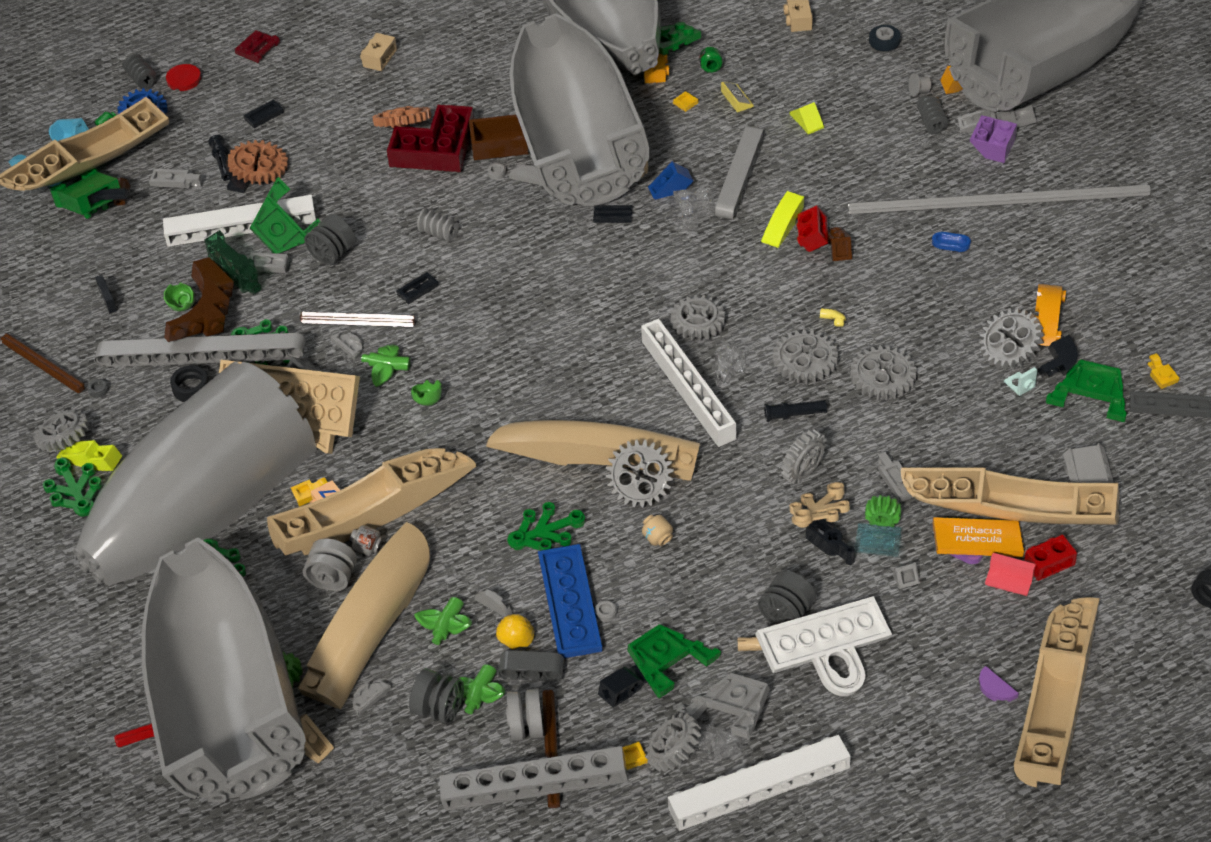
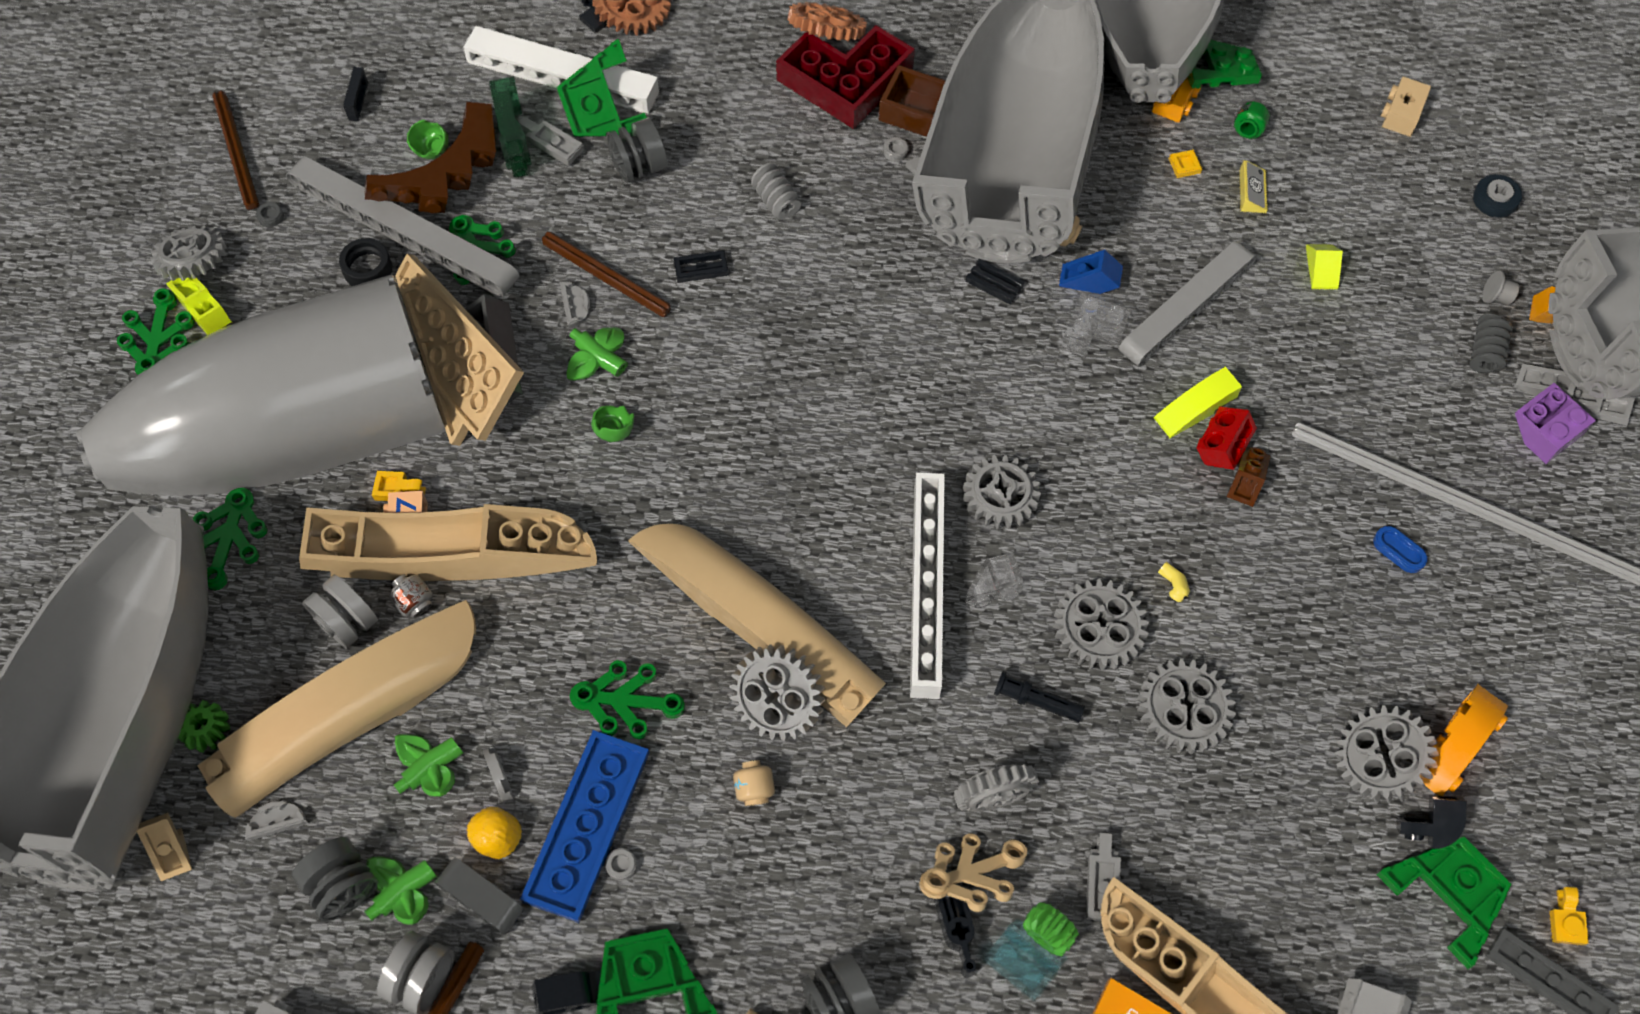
camera: 25 degrees right, 15 degrees up
(1025, 383) = (1367, 832): light aqua bracket -> none

